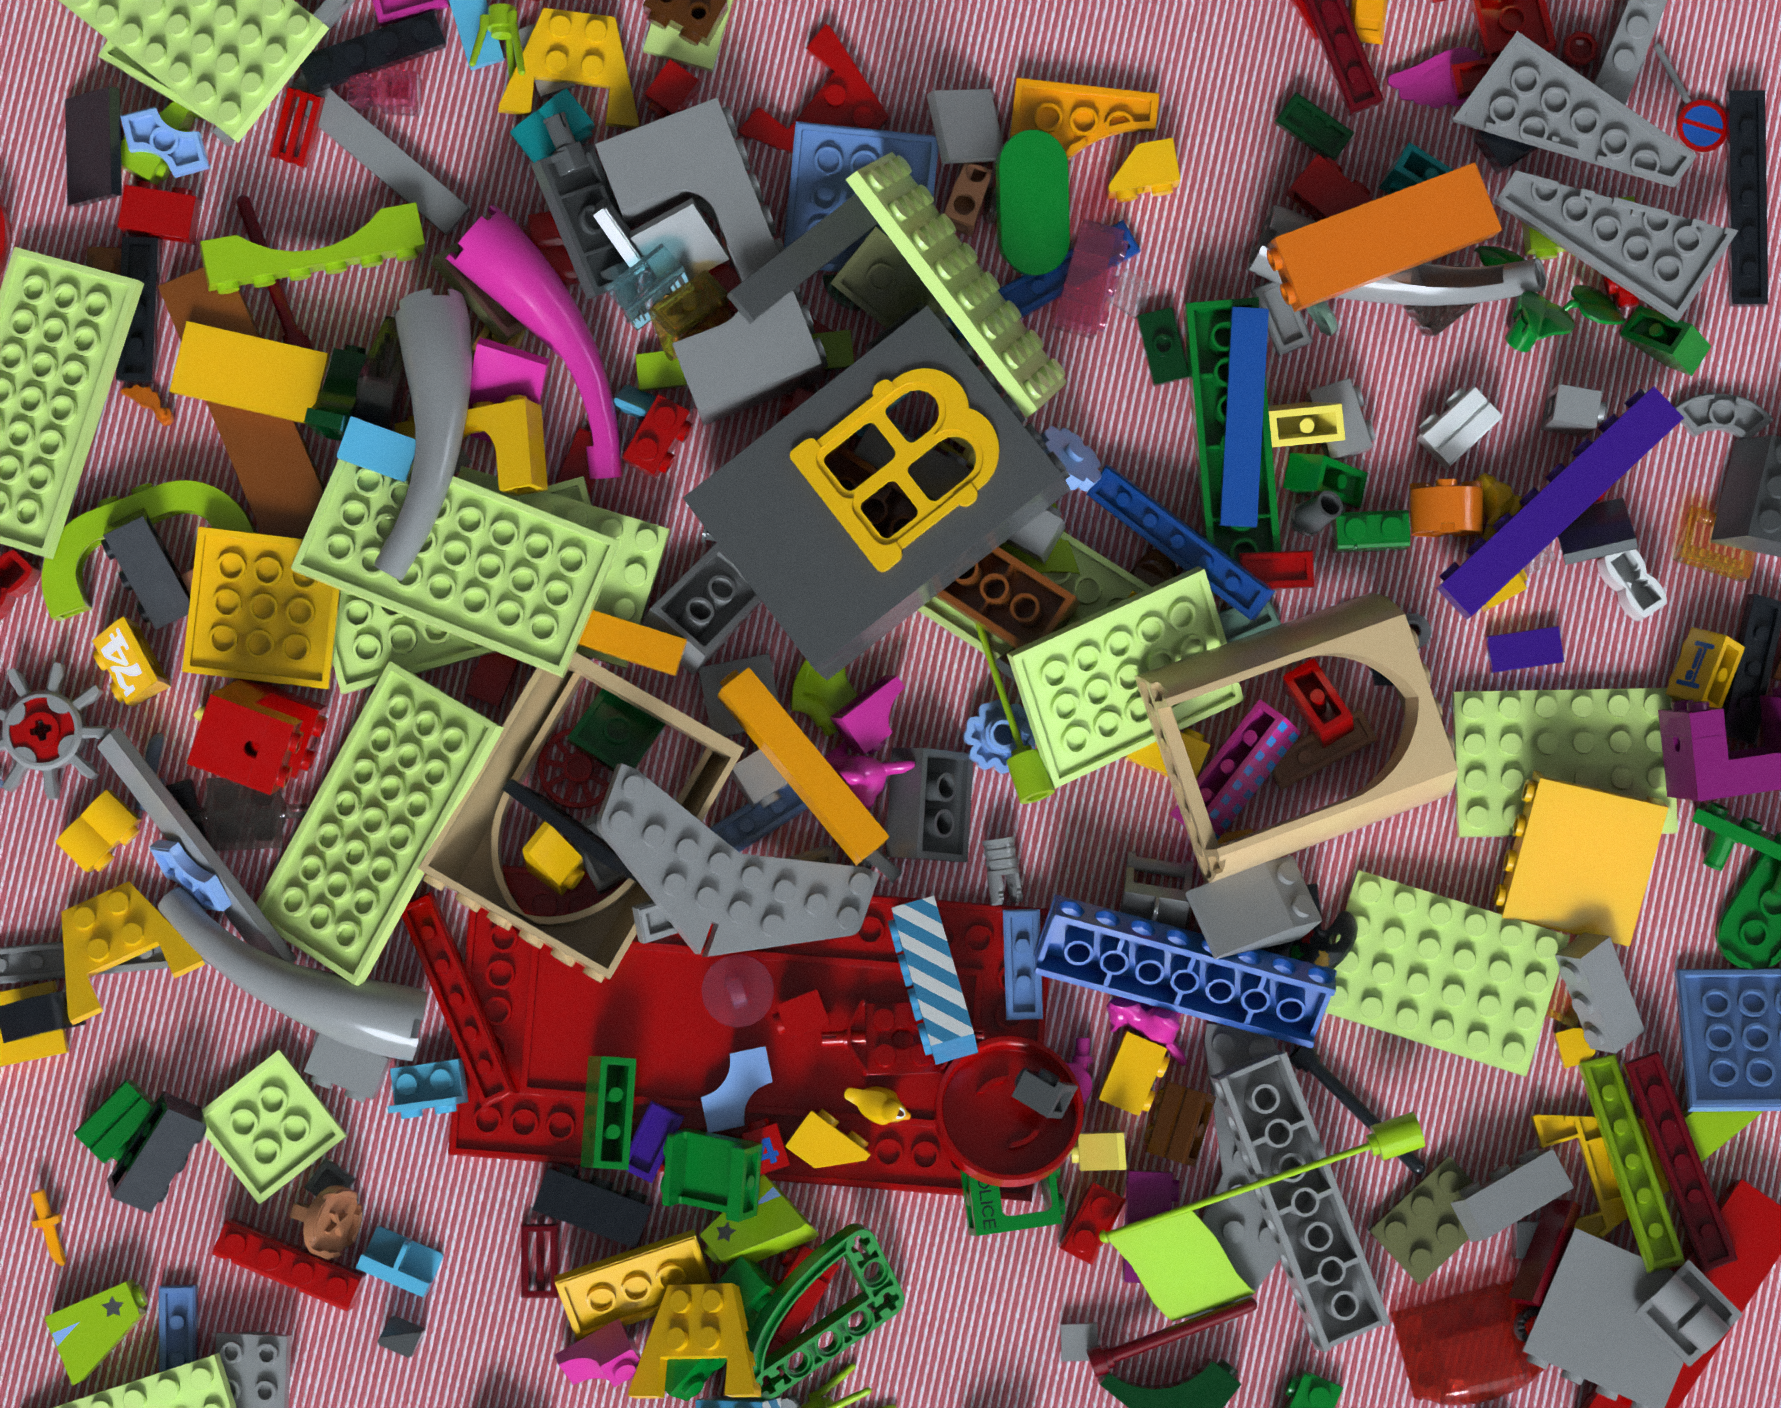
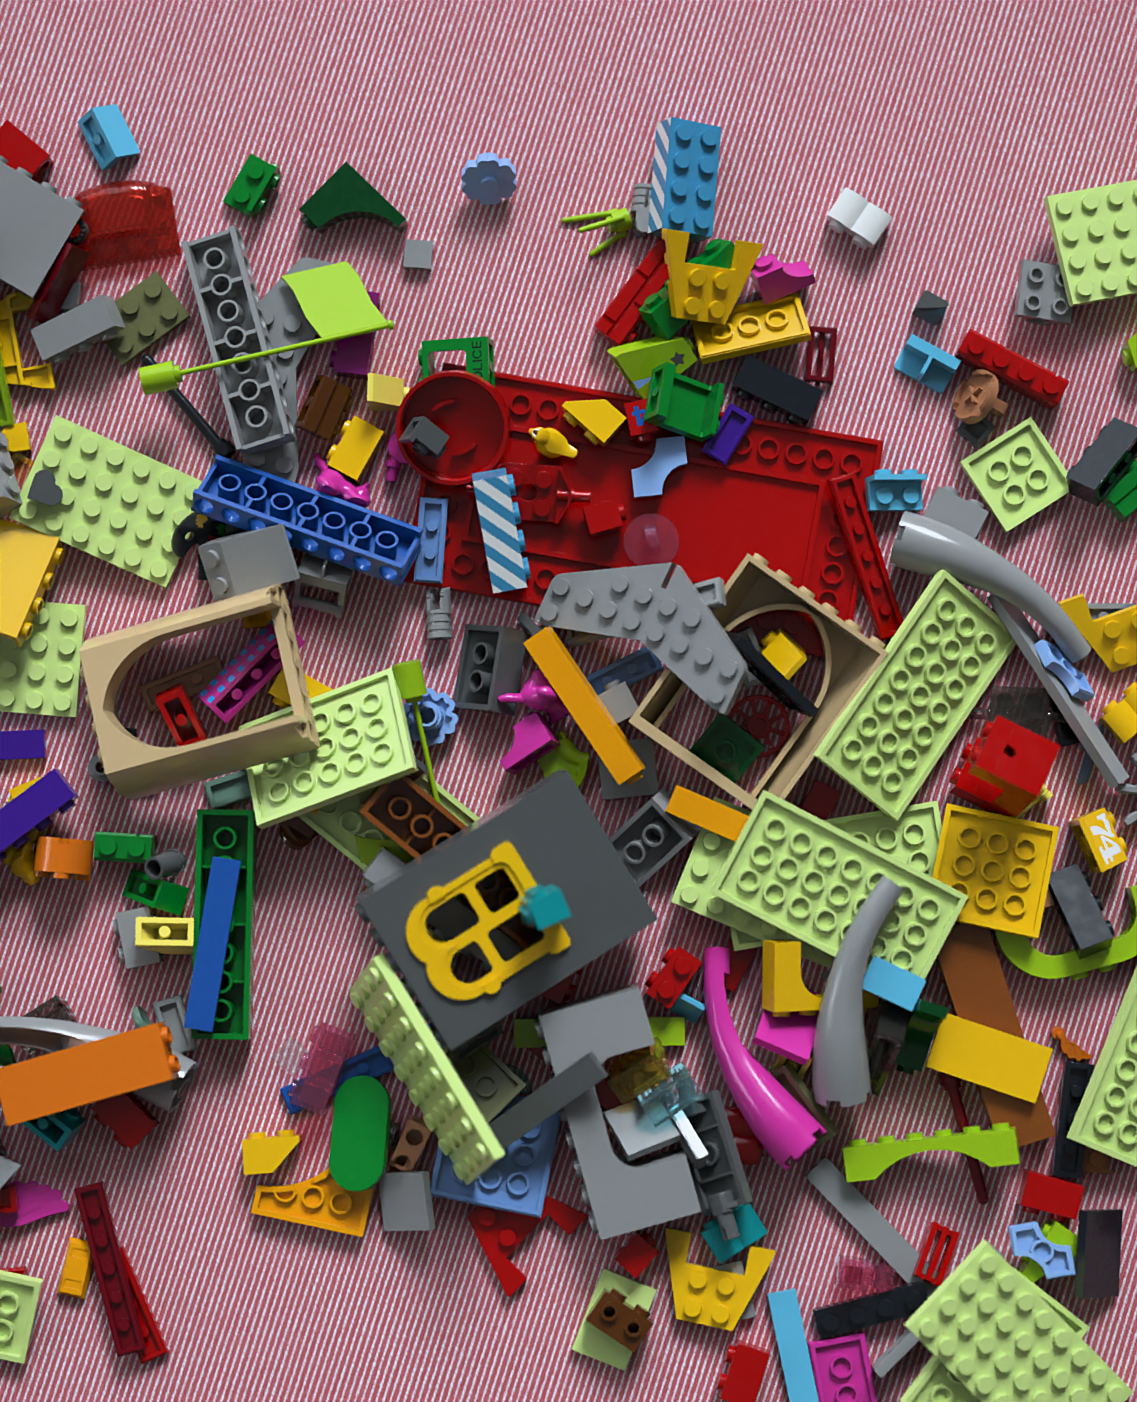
camera: 175 degrees left, 0 degrees up
(178, 1325) = (1099, 333): medium blue tile -> none
(503, 26) = (765, 1320): lime plant -> none
(608, 1112) = (758, 456): green brick -> none
(794, 1286) = (599, 285): green beam -> none
(827, 490) = (543, 906): none -> teal brick
(1076, 457) = (350, 928): light blue plant -> none
(1095, 1212) = (398, 343): red brick -> none
(1104, 1358) = (400, 238): dark red piece -> none
(1162, 346) = (271, 1010): dark green plate -> none
(1180, 542) = (274, 851): blue tile -> none
(1281, 568) = (201, 820): red tile -> none
(1314, 127) = (131, 1173): dark green plate -> none
(1458, 427) = (46, 923): white brick -> none
(1528, 975) = (44, 489): none -> dark grey tile

